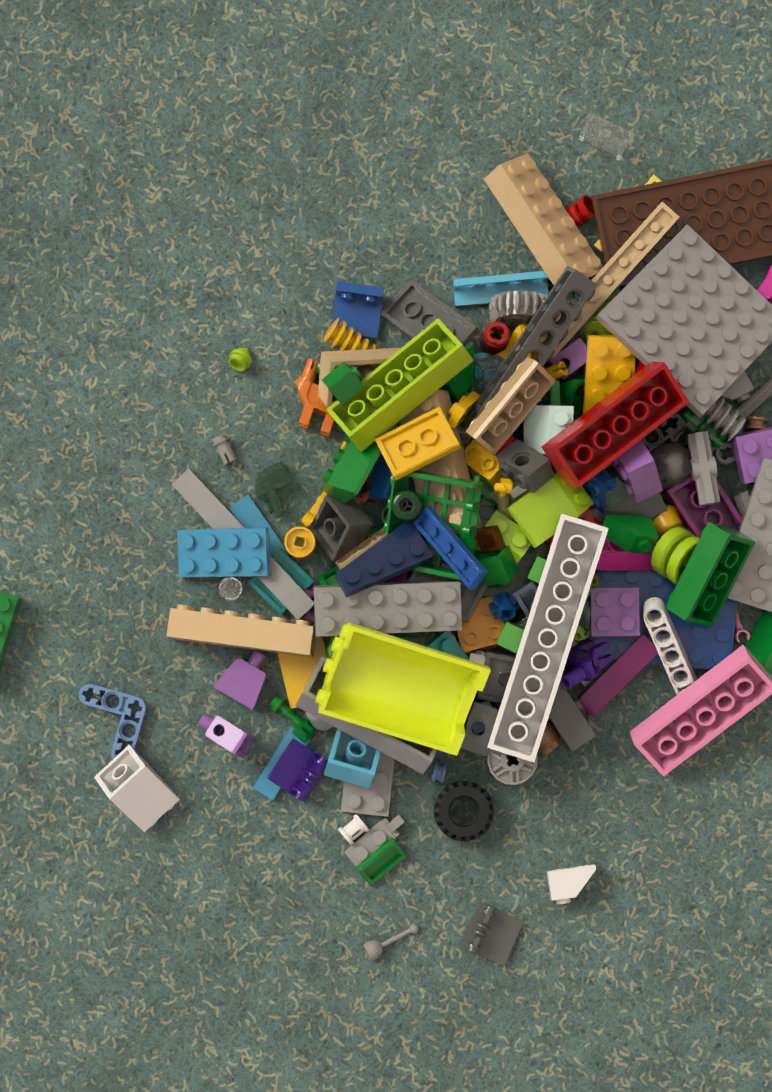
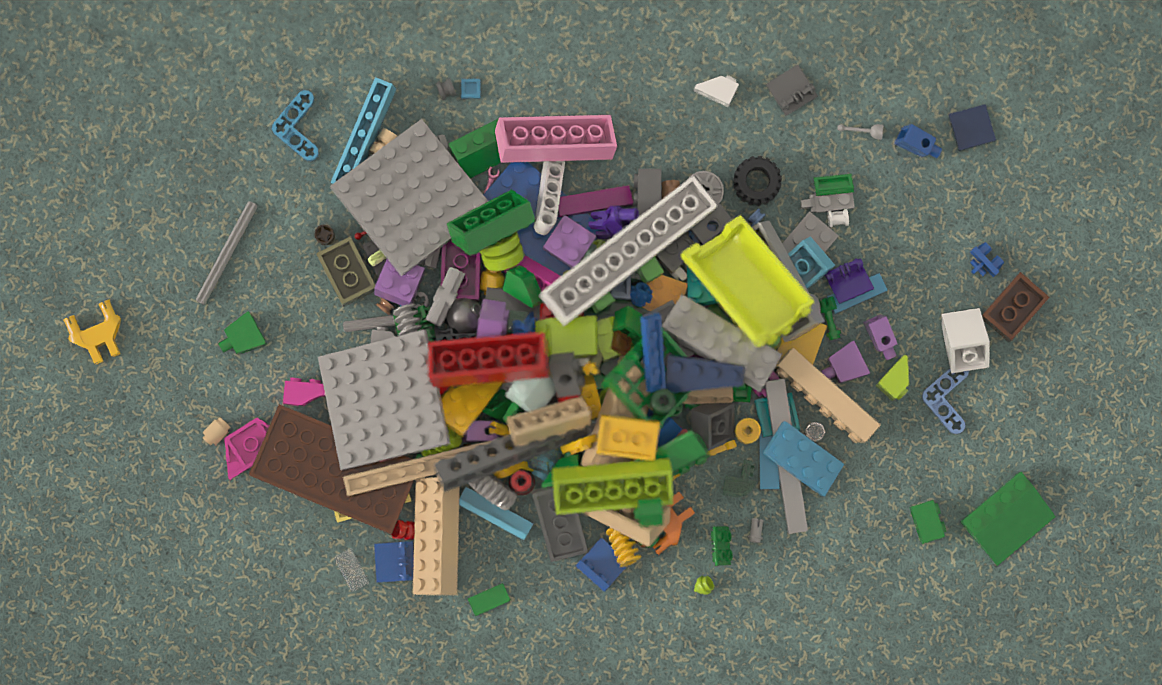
camera: 145 degrees left, 0 degrees up
(54, 574) = (927, 521): none -> green brick
(107, 857) = (1014, 307): none -> reddish brown brick
(181, 891) = (980, 254): none -> blue hips
(182, 697) = (895, 380): none -> lime slope
(249, 409) = (723, 554): none -> green hinge
(276, 1022) = (972, 127): none -> dark blue tile
(332, 966) = (911, 138): none -> blue torso
(448, 201) = (489, 599): none -> green tile
(569, 175) = (394, 561): none -> blue hinge

